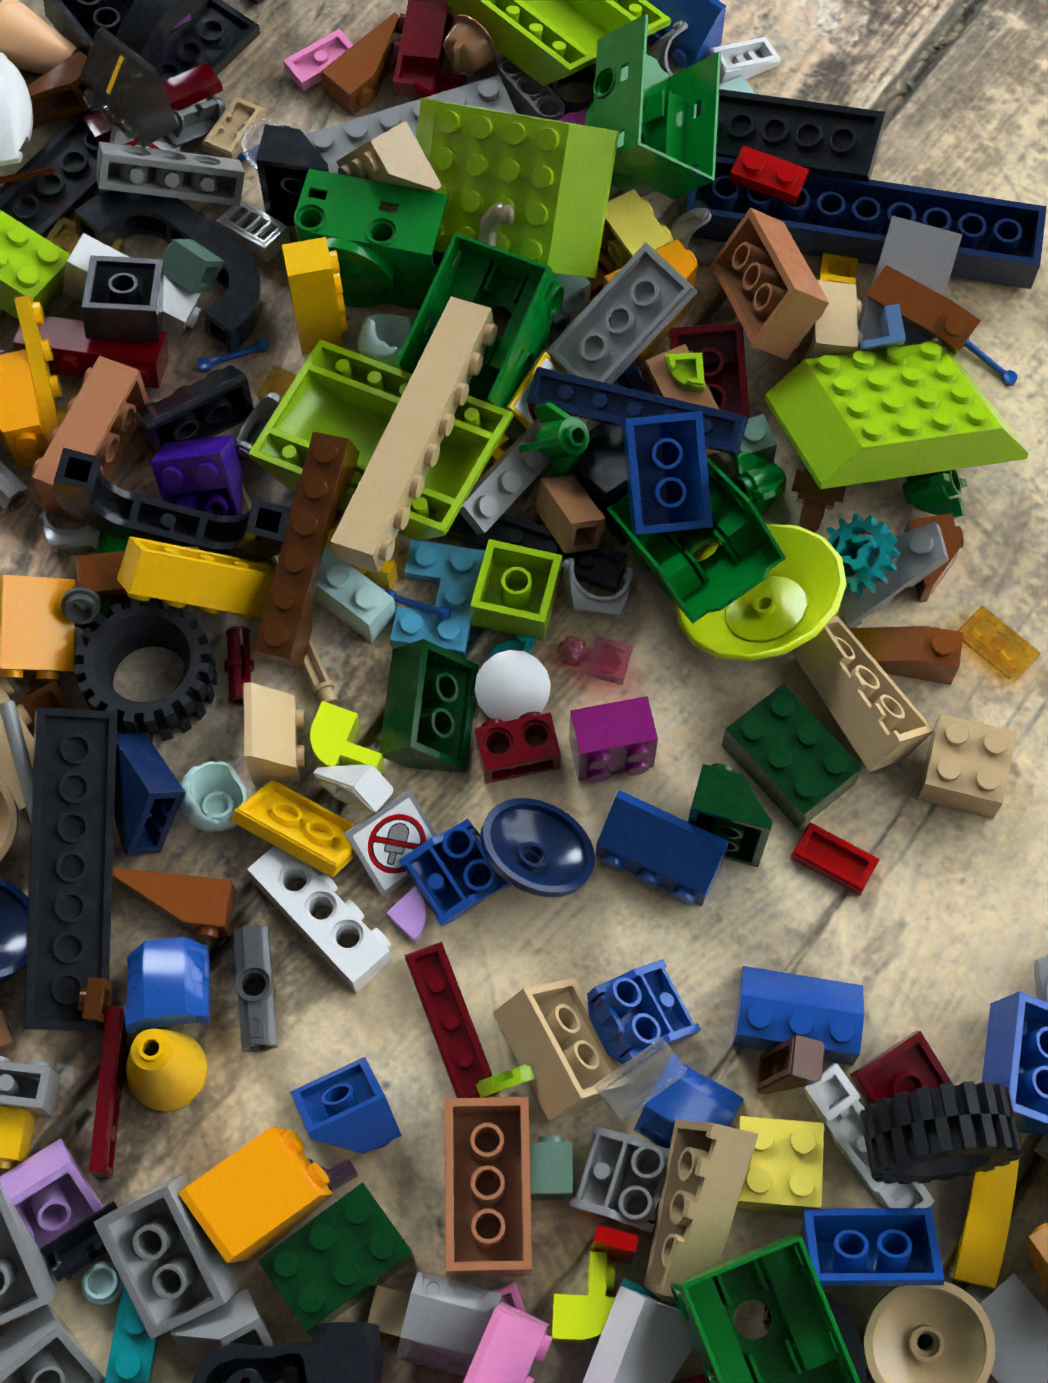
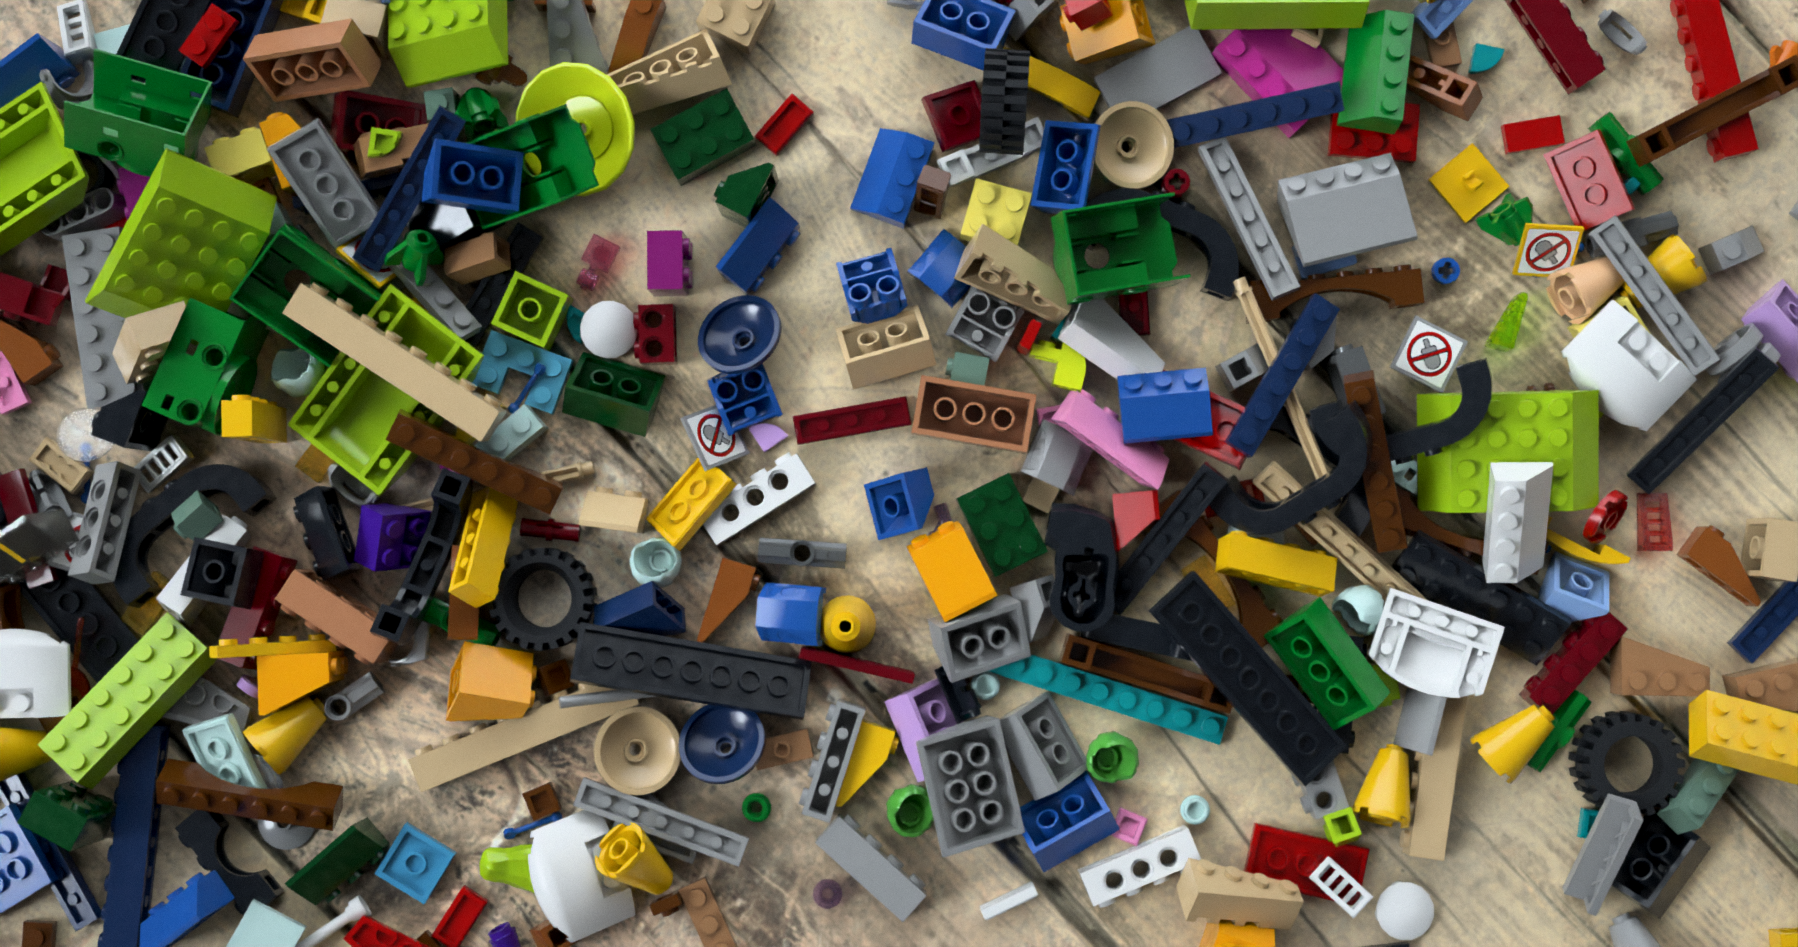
camera: 80 degrees left, 20 degrees up
(80, 613) = (488, 639): dark grey plate -> none
(95, 999) = (794, 665): reddish brown plate -> none
(205, 364) = (280, 520): blue hinge -> none
(334, 738) = (628, 470): neon yellow brick -> none
(355, 785) = (670, 454): white slope -> none
(470, 46) = (29, 255): medium nougat piece -> none
(492, 220) = (221, 268): dark tan arm -> none
(505, 1080) = (903, 389): lime tile -> none
(585, 602) = (551, 263): light grey helmet -> none
(640, 1079) = (923, 295): clear tile -> none
(686, 226) = (249, 116): light grey helmet -> none
(873, 552) = (557, 36): teal gear -> none

